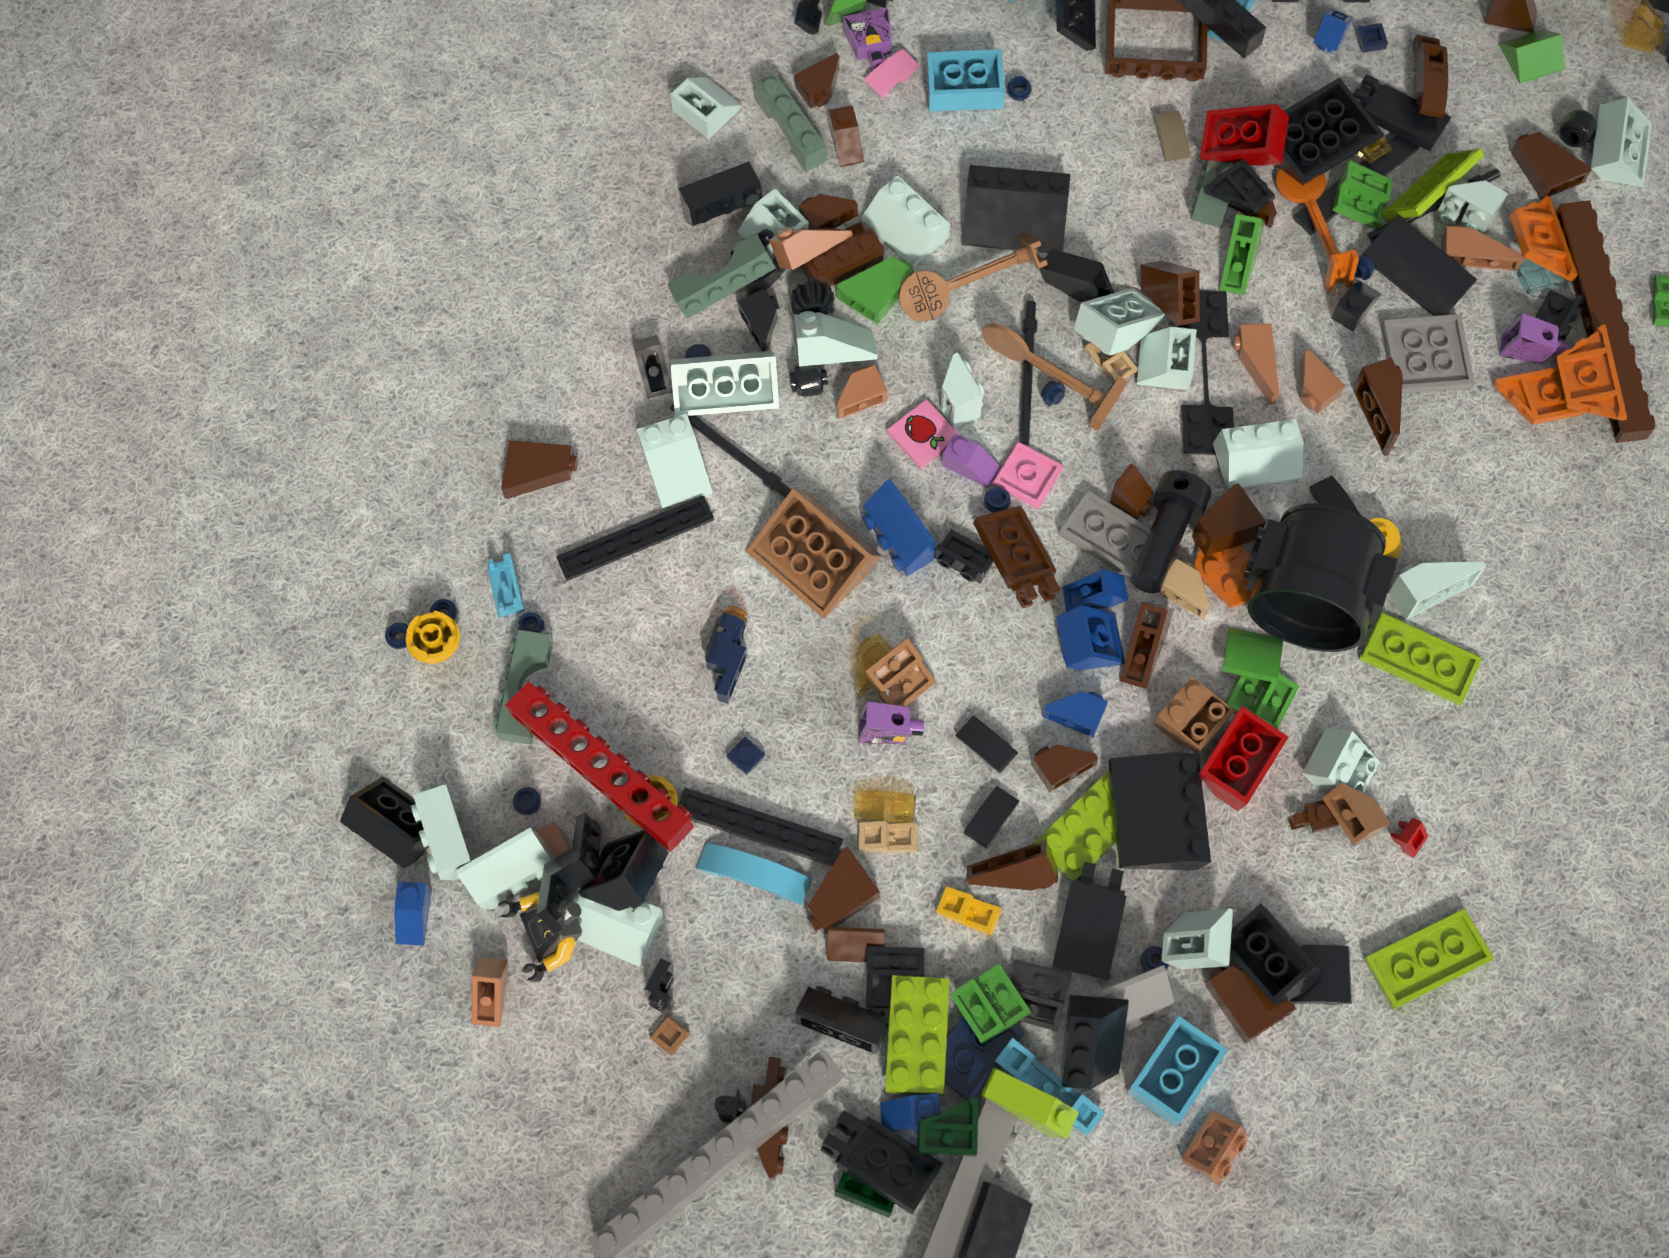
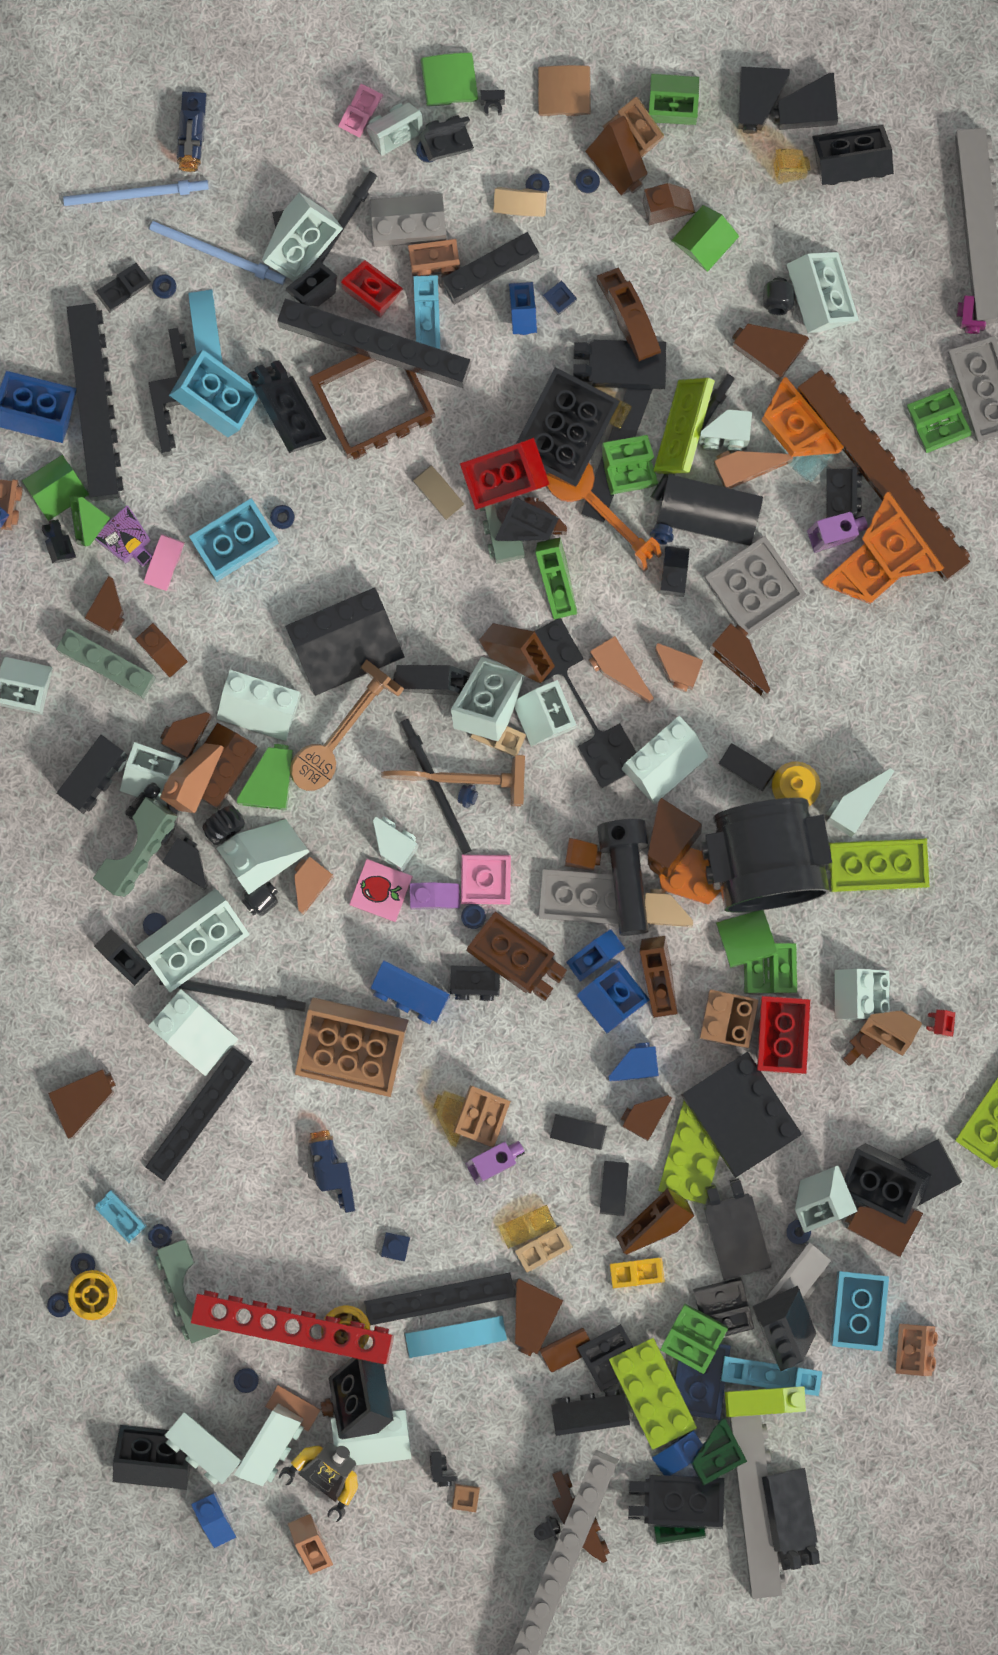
camera: 30 degrees left, 15 degrees up
(569, 872) = (321, 1425): black bracket -> none

